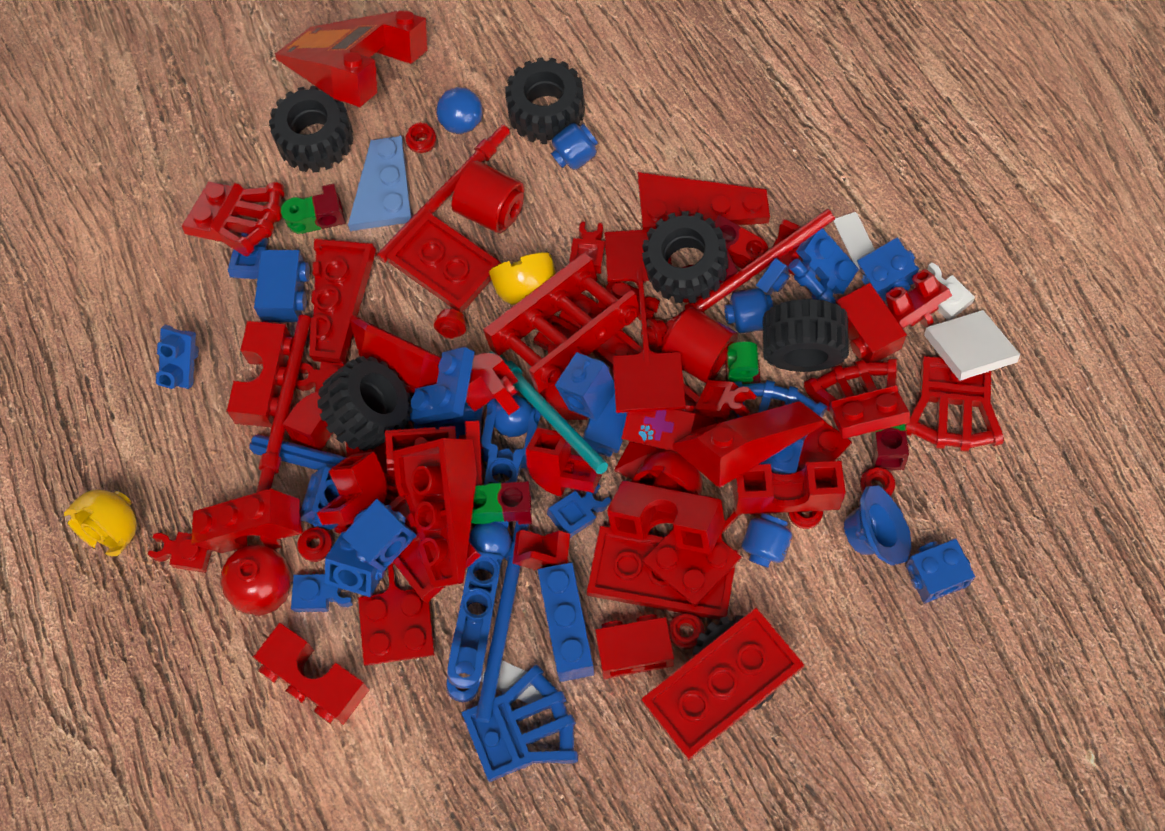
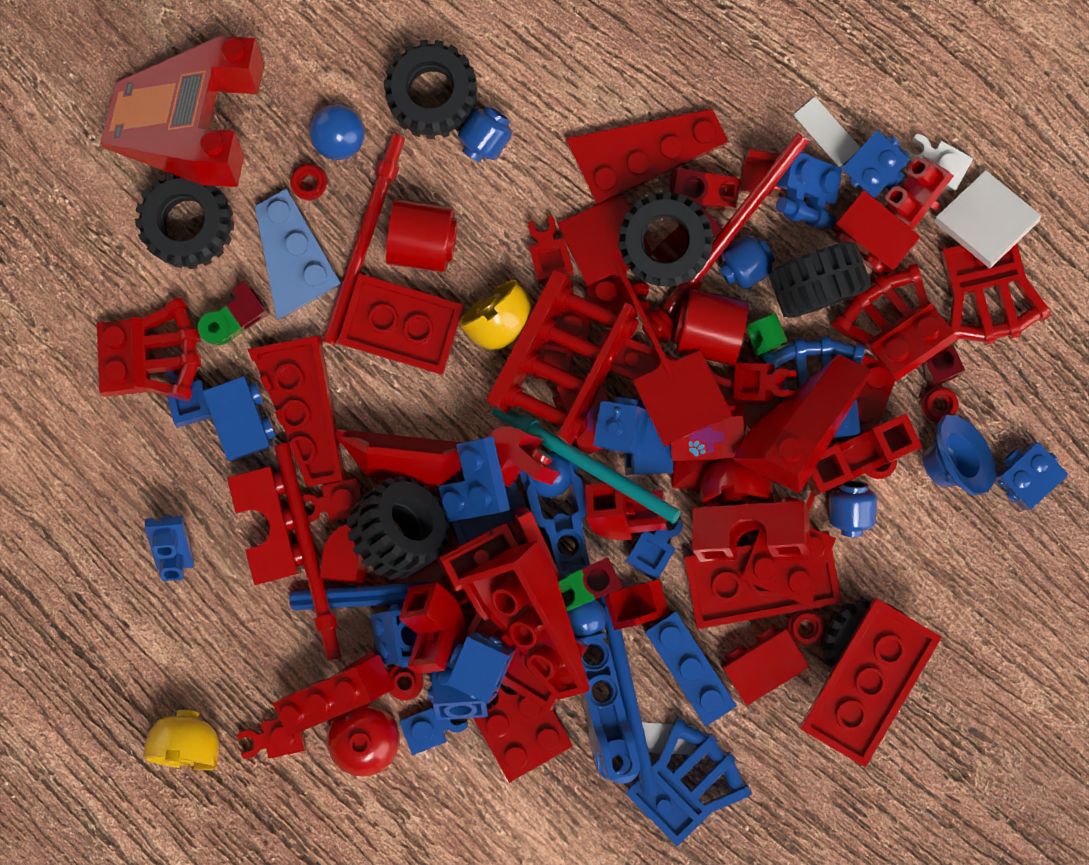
camera: 30 degrees left, 20 degrees up
(285, 657) = (492, 825): red arch -> none
(450, 323) = (439, 394): red plate -> none
(774, 277) = (764, 223): blue plate -> none

